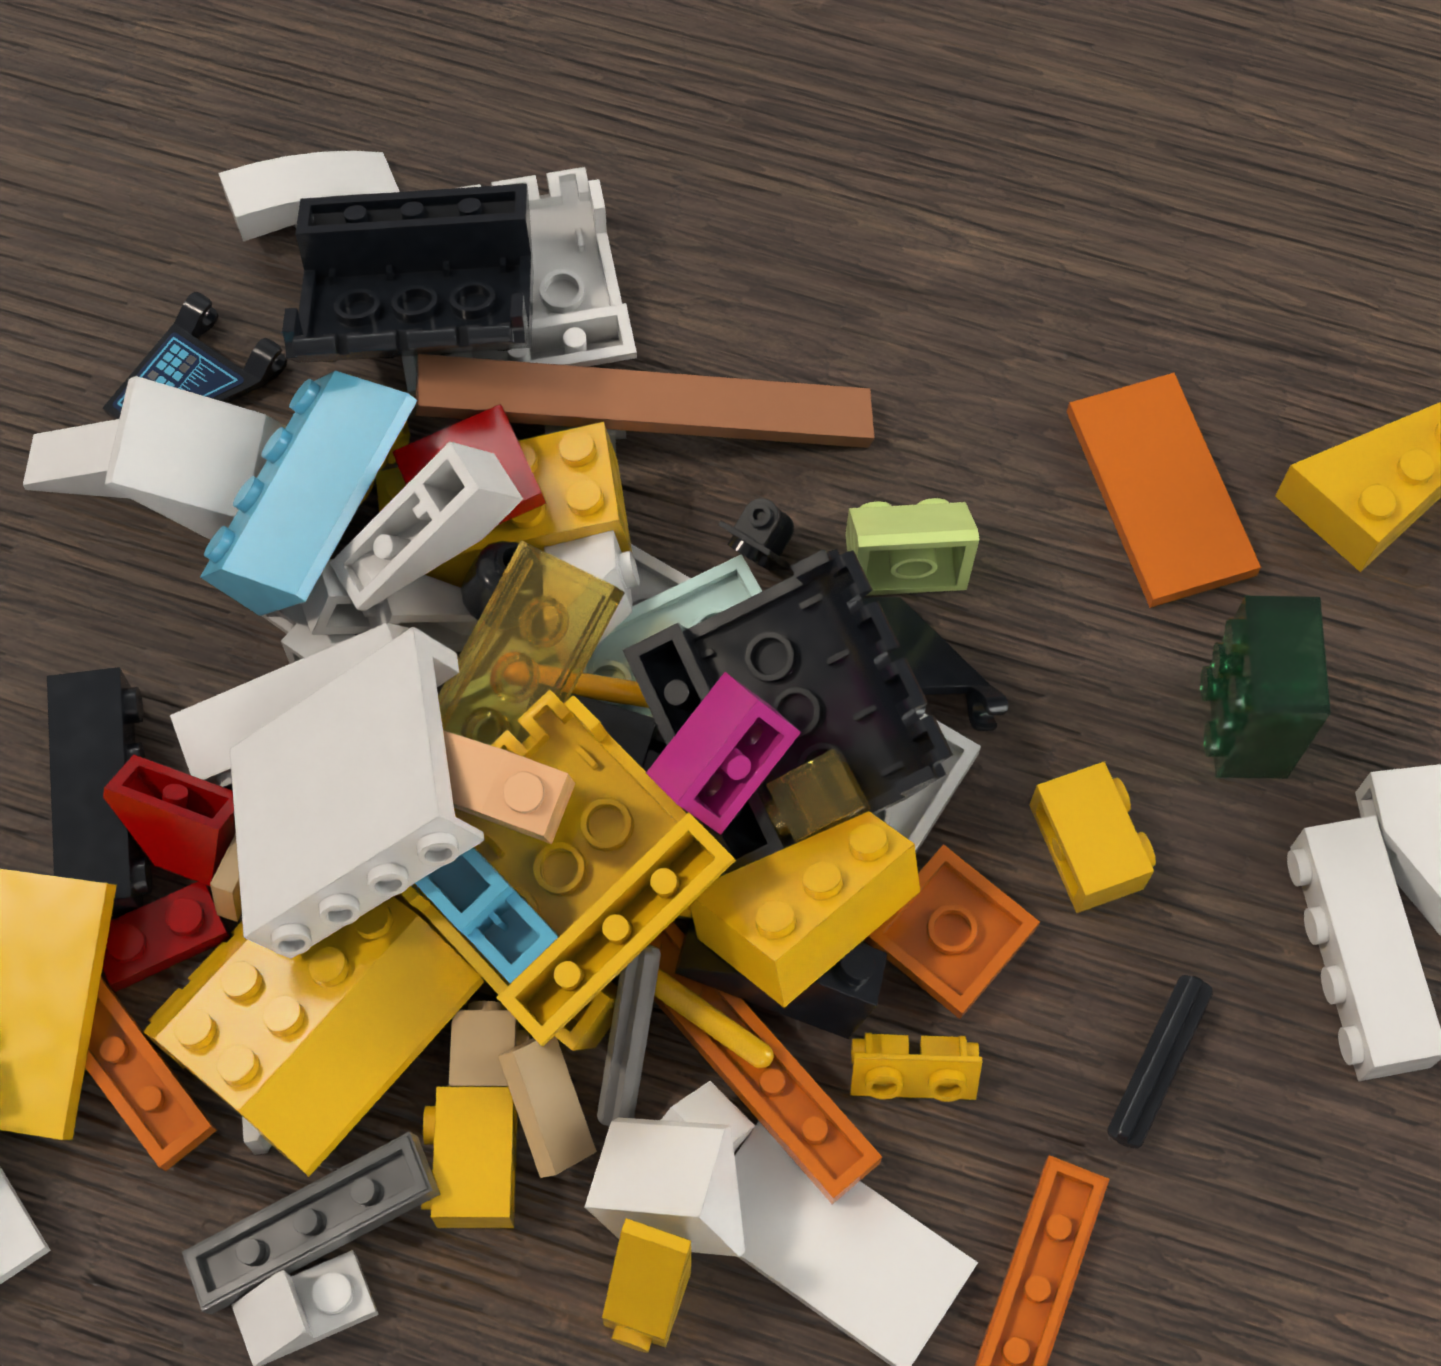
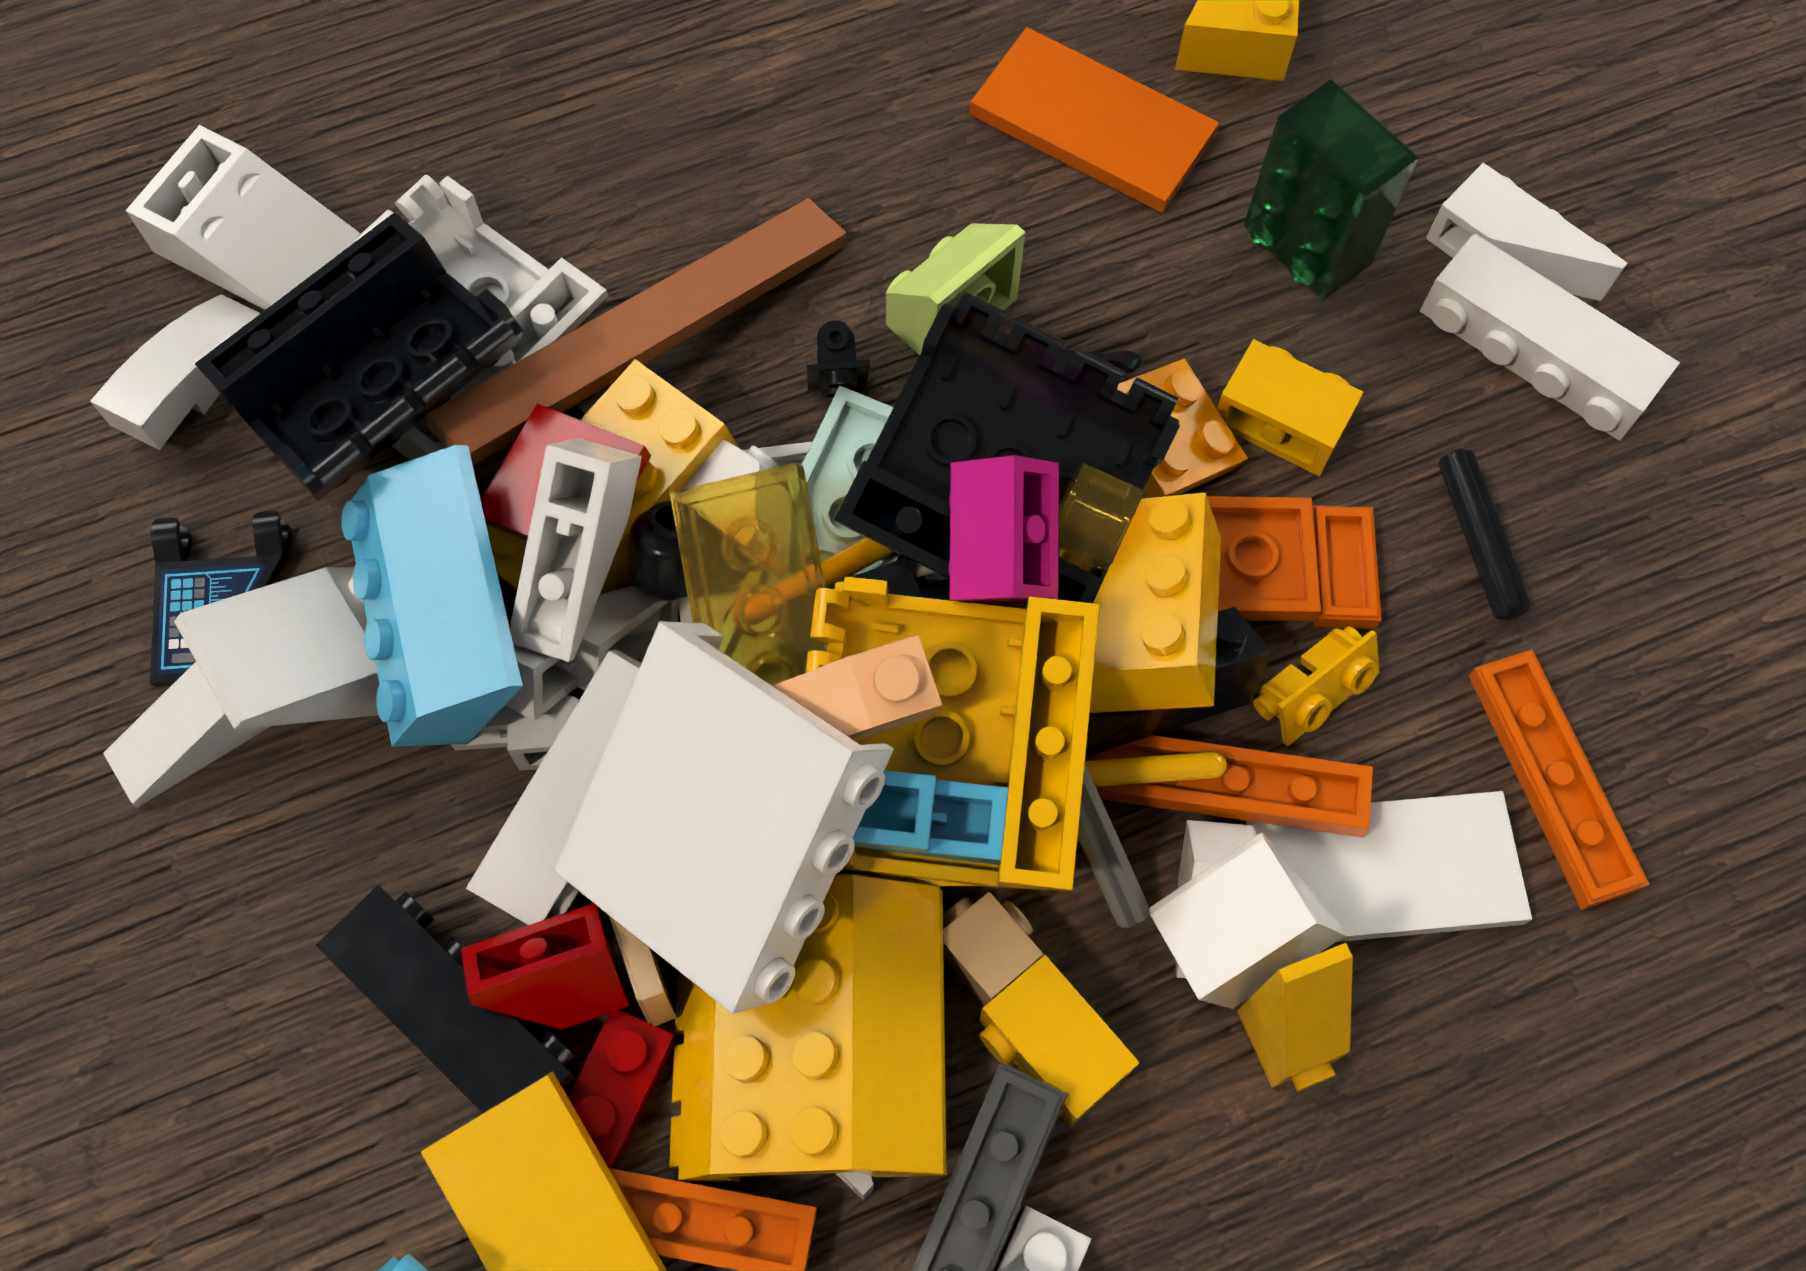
camera: 40 degrees left, 0 degrees up
(434, 107) = (236, 220): none -> white slope
(547, 1106) = (1080, 947): tan tile -> none
(985, 786) = (1203, 444): none -> light orange plate
(1023, 996) = (1347, 567): none -> orange tile

